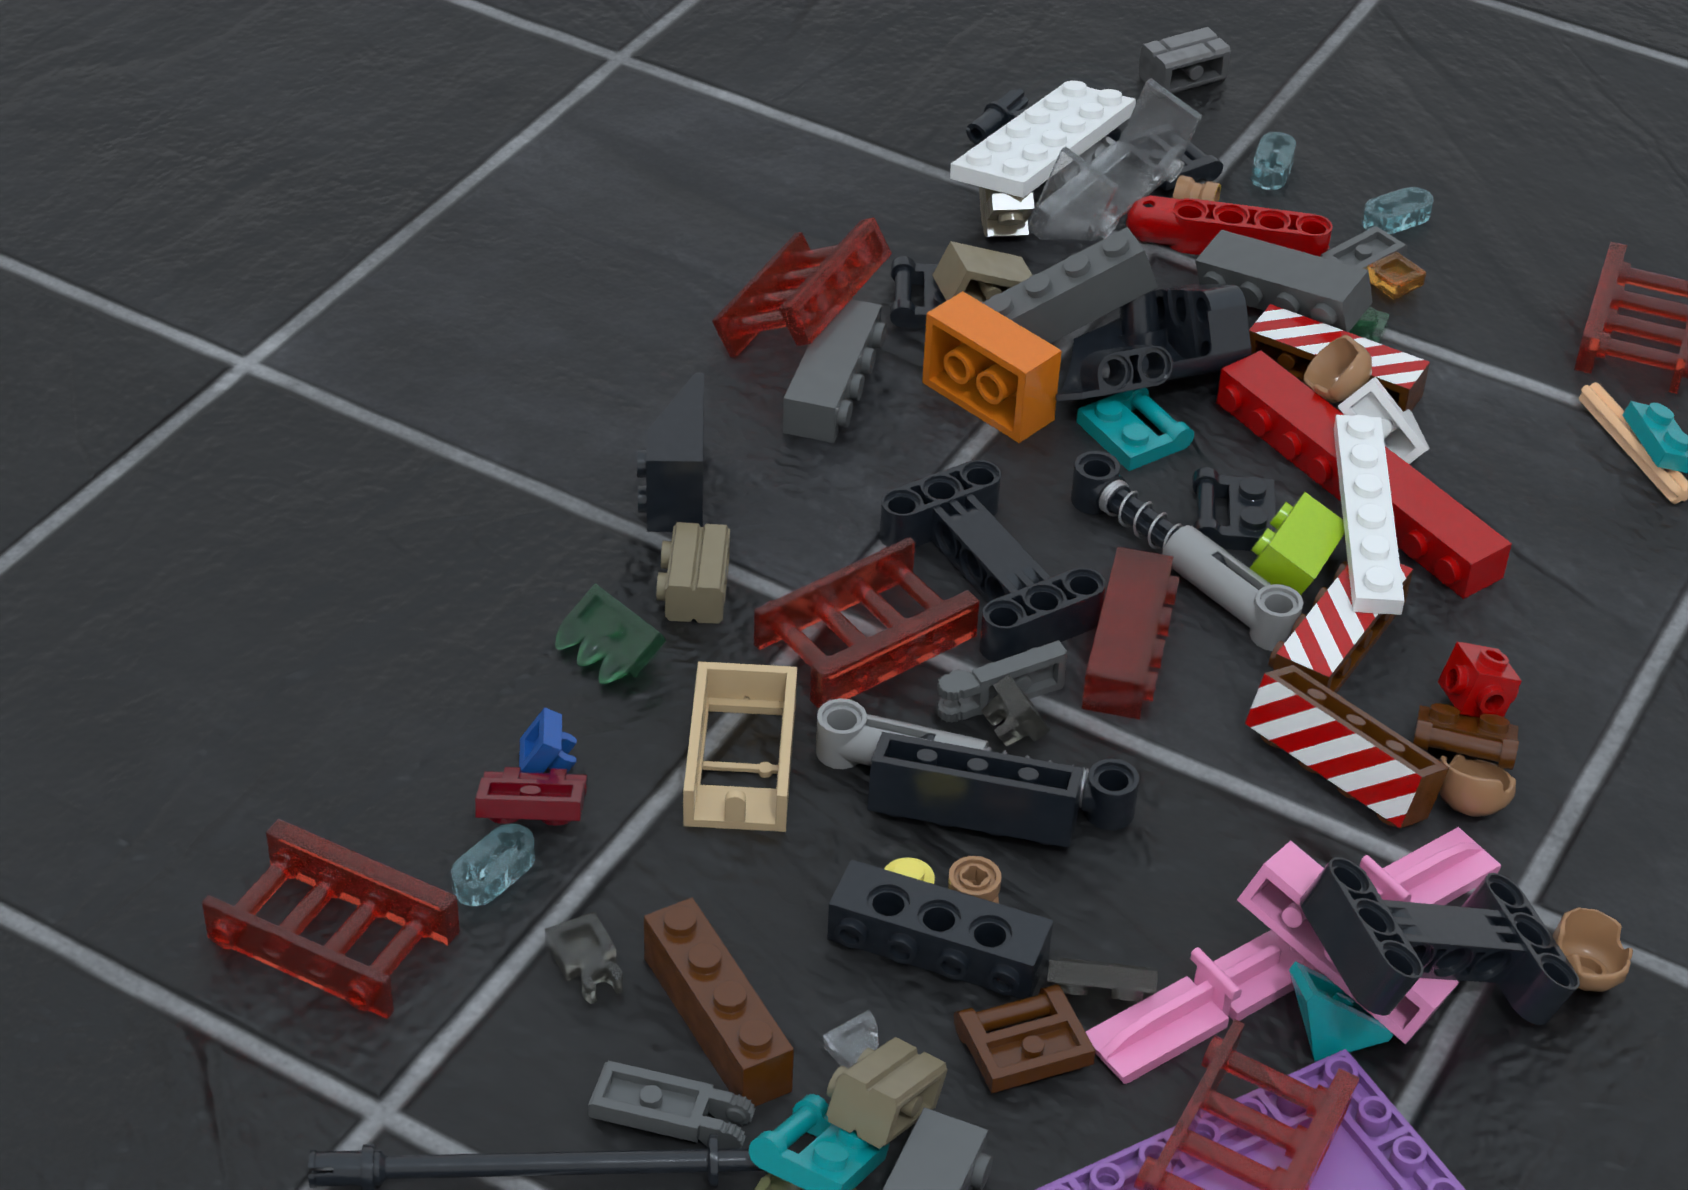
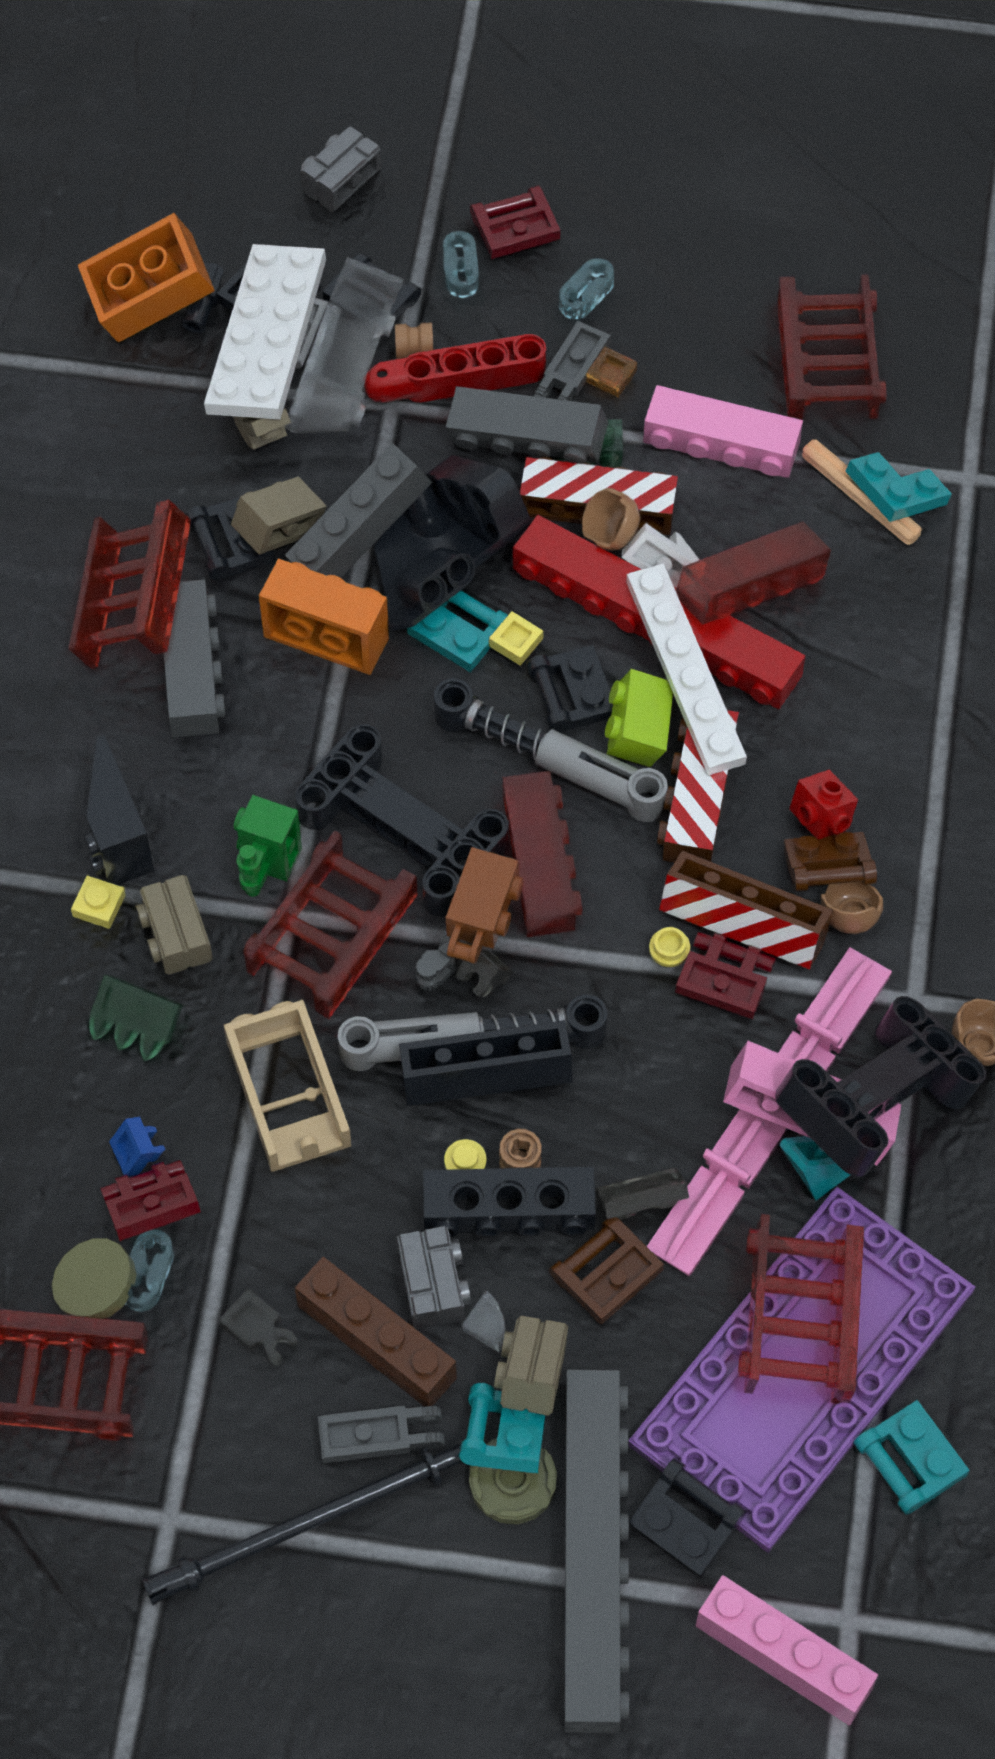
camera: 20 degrees left, 20 degrees up
(430, 845) = (93, 1279): none -> olive tile
(628, 536) = (98, 902): none -> light yellow plate
(811, 972) = (432, 1277): none -> flat silver brick
(829, 524) = (267, 843): none -> green brick
(945, 75) = (146, 277): none -> orange brick
(1038, 634) = (482, 903): none -> dark orange brick
(1191, 450) = (516, 638): none -> light yellow plate
(1242, 760) = (669, 947): none -> light yellow plate
(1296, 804) = (721, 983): none -> dark red plate
(1345, 145) = (518, 229): none -> dark red plate
(1480, 458) = (752, 573): none -> clear red brick
(1497, 350) = (722, 431): none -> bright pink brick

